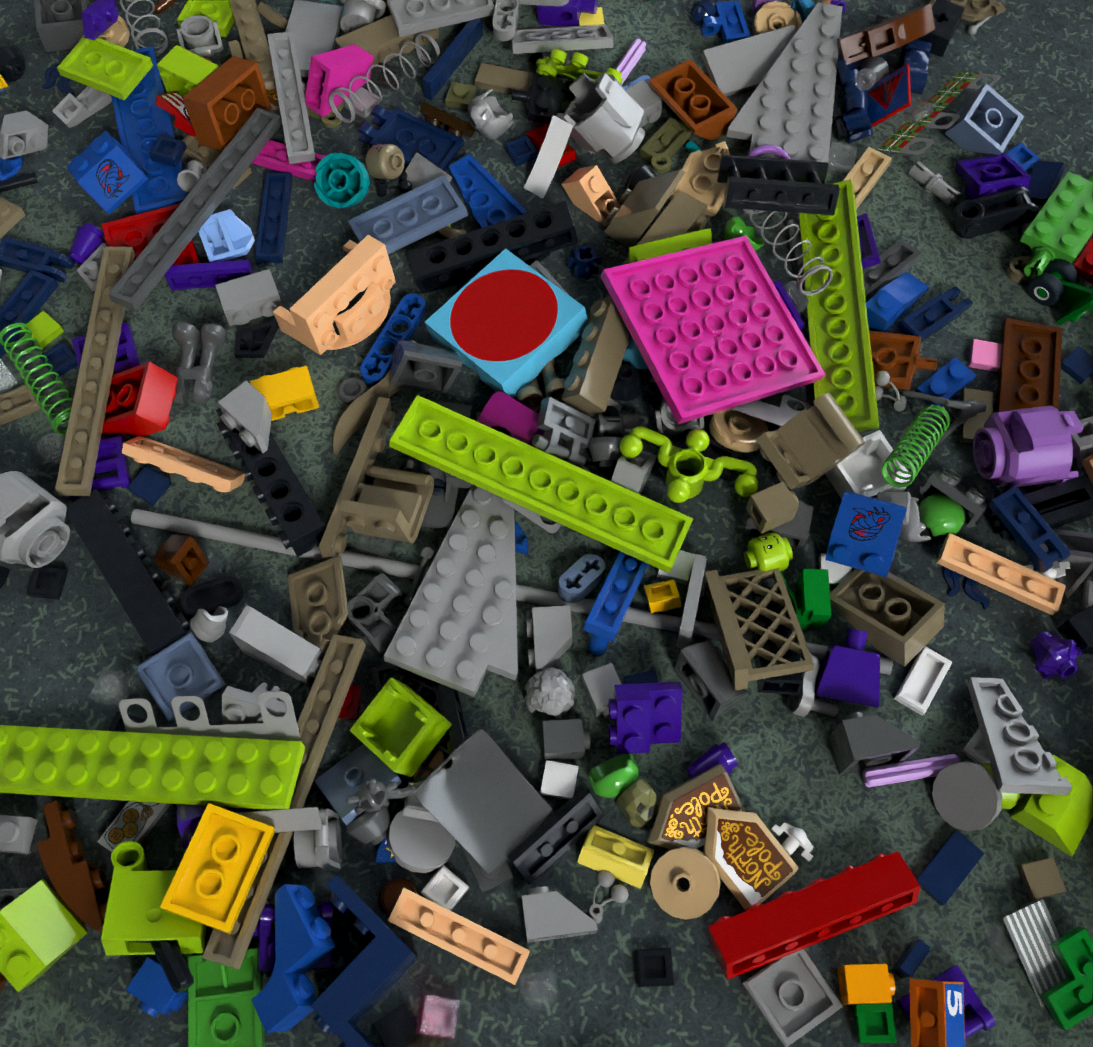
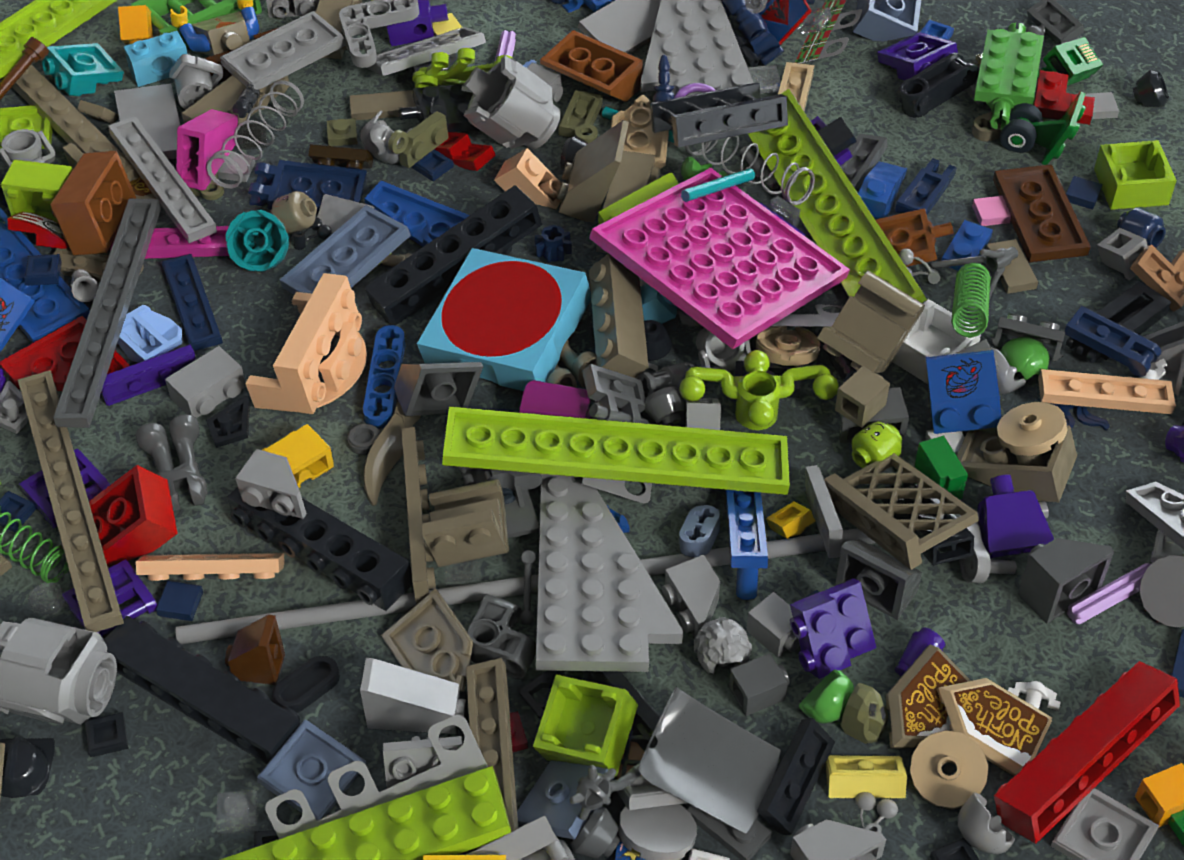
camera: 20 degrees left, 15 degrees down
(209, 627) = (319, 706): light grey arm -> none
(386, 45) = (246, 101): none -> black axle
(452, 58) = (316, 99): dark blue tile -> none
(515, 126) = (419, 140): none -> olive hinge
(549, 157) = (471, 157): white sticker -> none
(559, 780) = (772, 725): white tile -> none
(680, 947) = (981, 829): none -> light grey hair
(681, 568) = (797, 492): white tile -> none
(742, 256) = (717, 185): none -> teal bar
(743, 143) = (664, 90): none -> dark blue bar
(872, 240) = (837, 136): none -> black tile
(909, 592) = (1032, 428): none -> tan plate
(923, 680) = (1082, 511): white tile -> none
(934, 183) = (865, 77): light grey pin -> none
(1026, 446) = (1074, 270): medium lavender piece -> none
(1044, 180) = (969, 43): dark blue tile -> none

